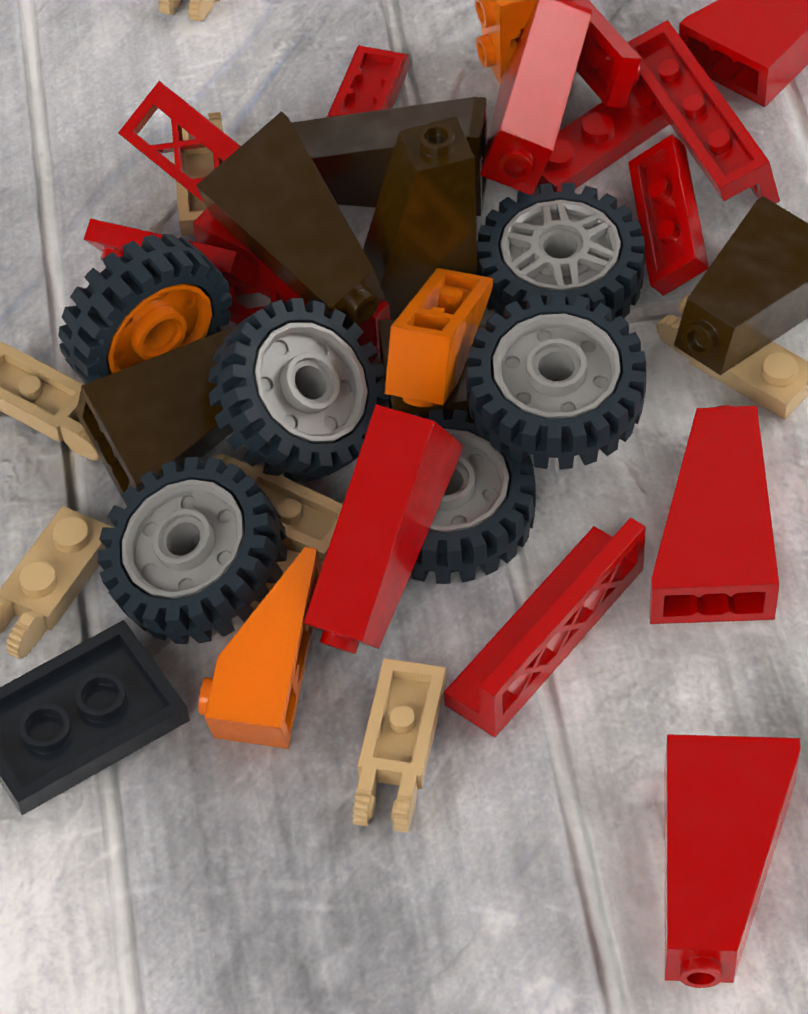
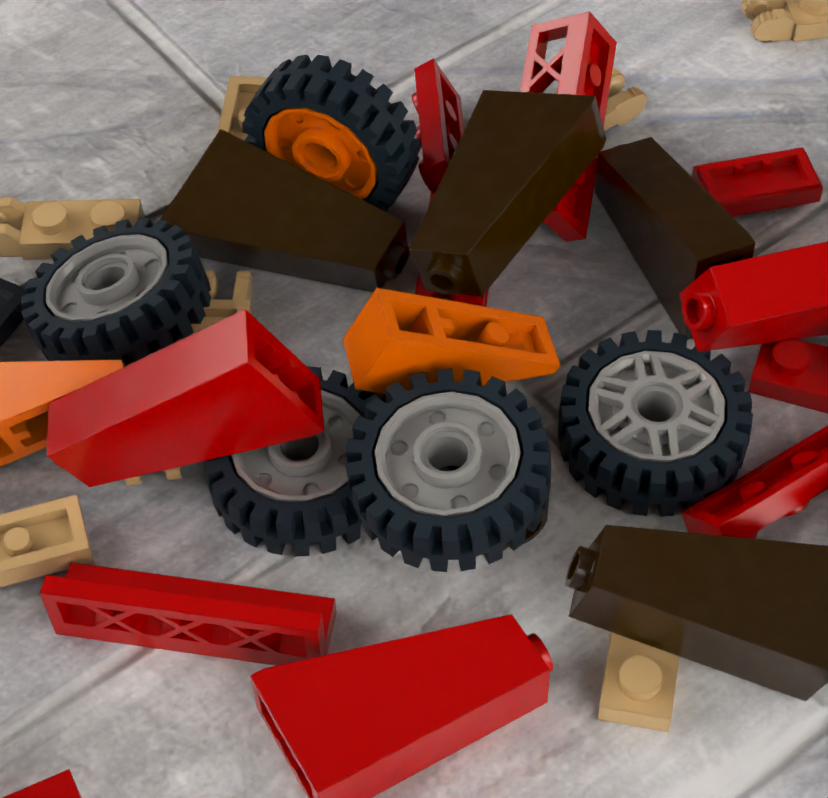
camera: 60 degrees right, 0 degrees up
(259, 394) = (297, 240): wheel -> none
(424, 212) = (572, 265): dark brown slope -> none

